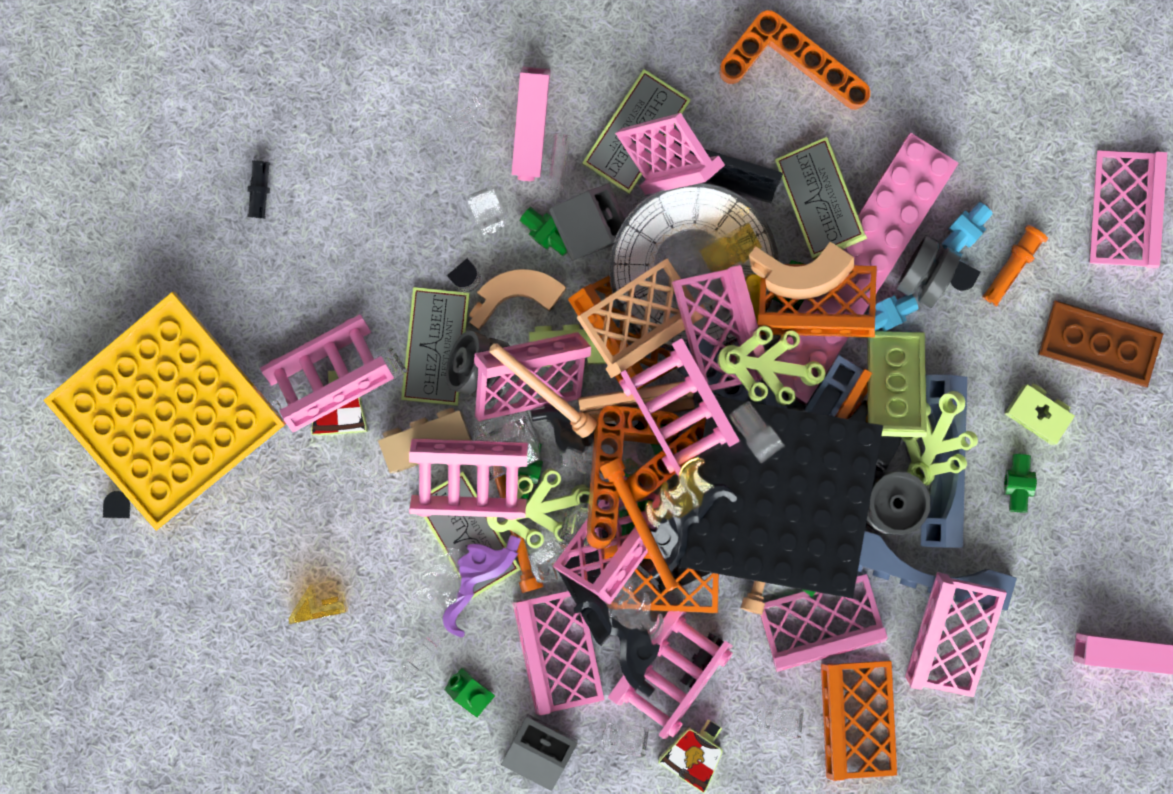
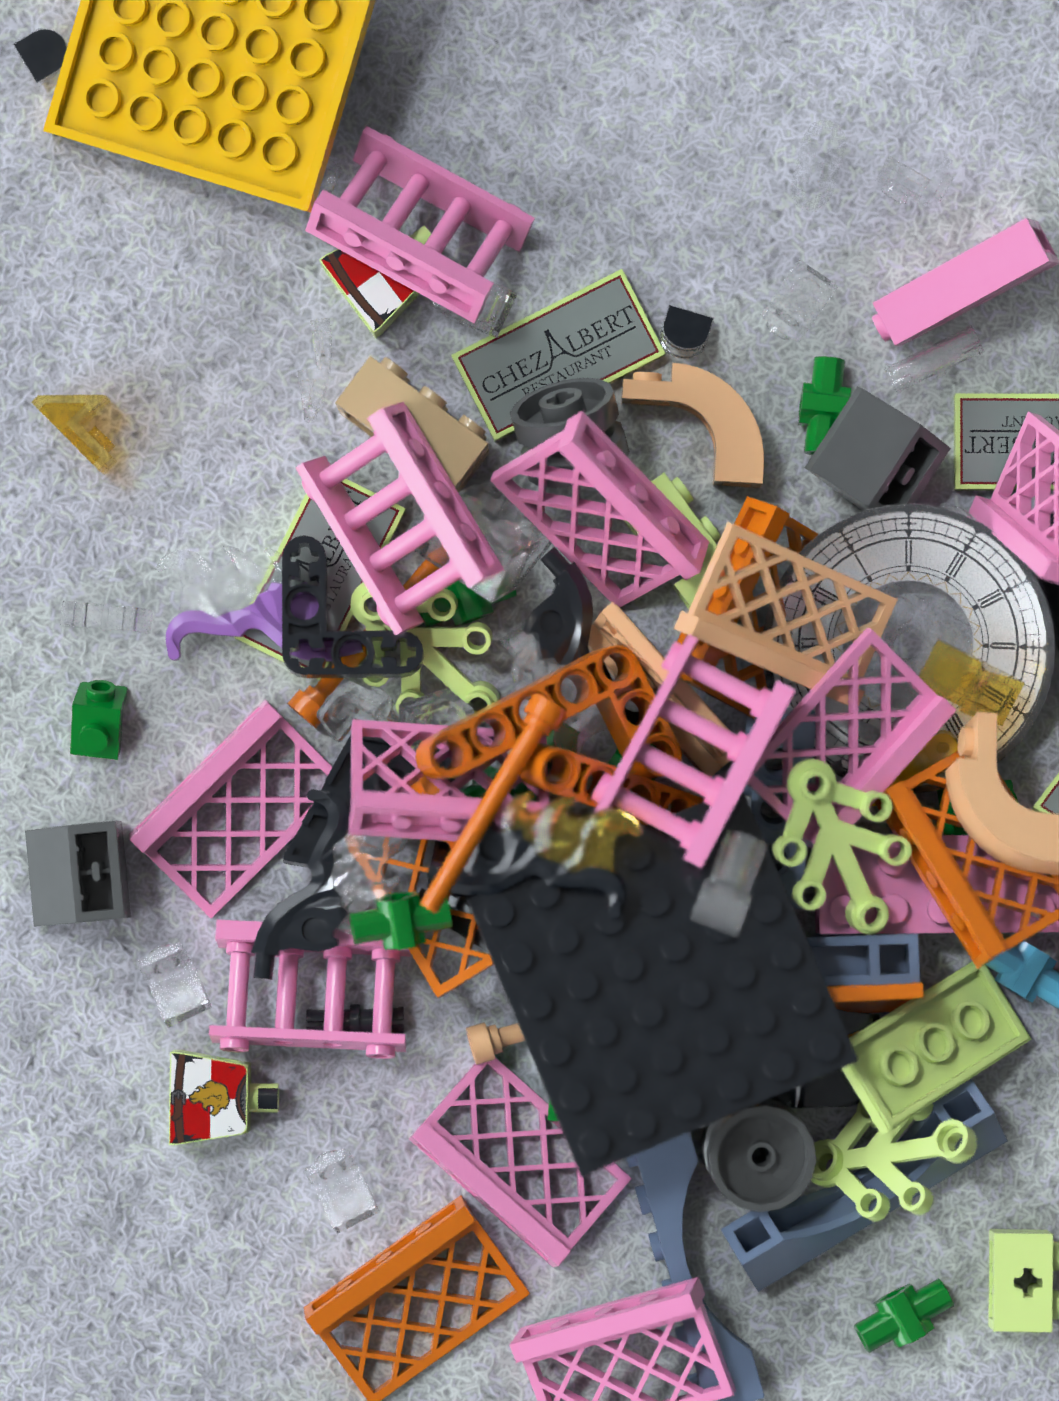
camera: 65 degrees right, 0 degrees up
(495, 555) = (315, 629): none -> black beam
(581, 422) = (583, 630): light nougat piece -> none
(668, 608) = (398, 921): none -> green axle

